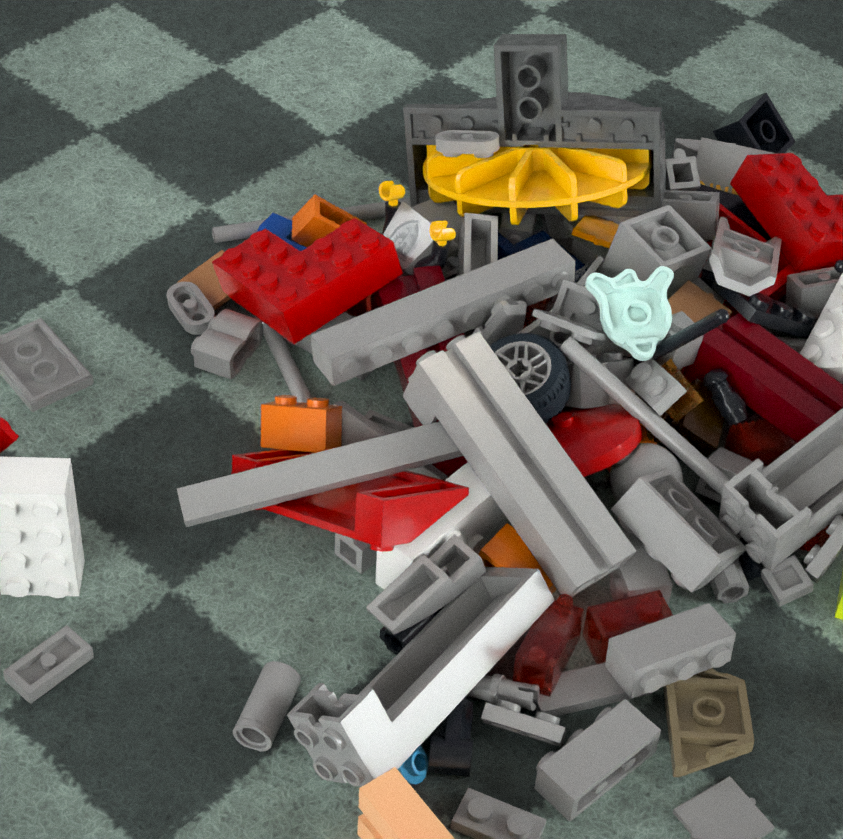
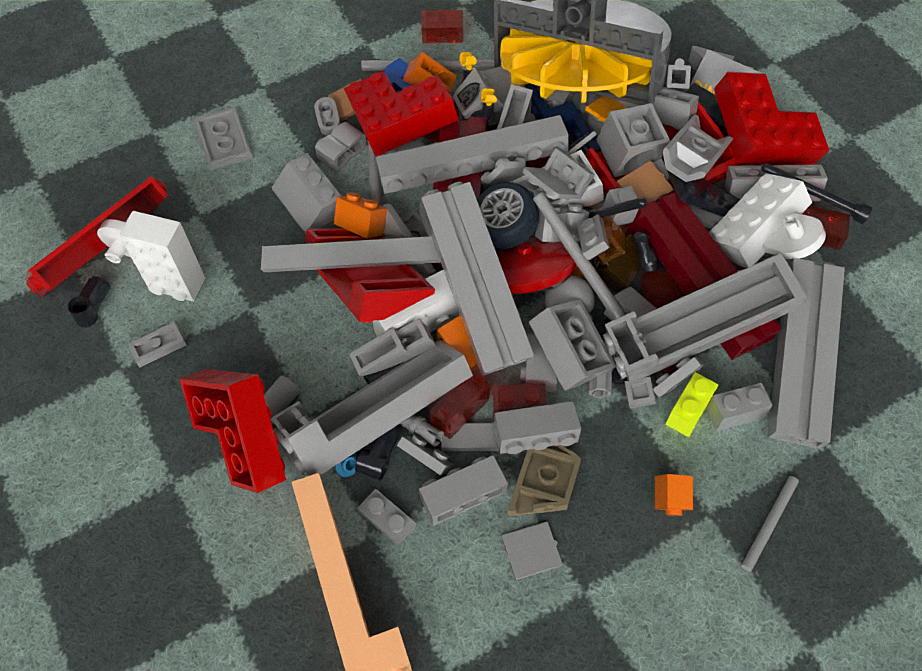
camera: 20 degrees right, 15 degrees up
(204, 414) = (306, 193): none -> light grey slope
(253, 720) = (237, 412): none -> red brick
(314, 166) = (442, 26): none -> clear red brick
(459, 142) = (529, 32): light grey plate -> none
(632, 310) = (593, 181): light aqua tile -> none
(756, 126) = (755, 47): black slope -> none

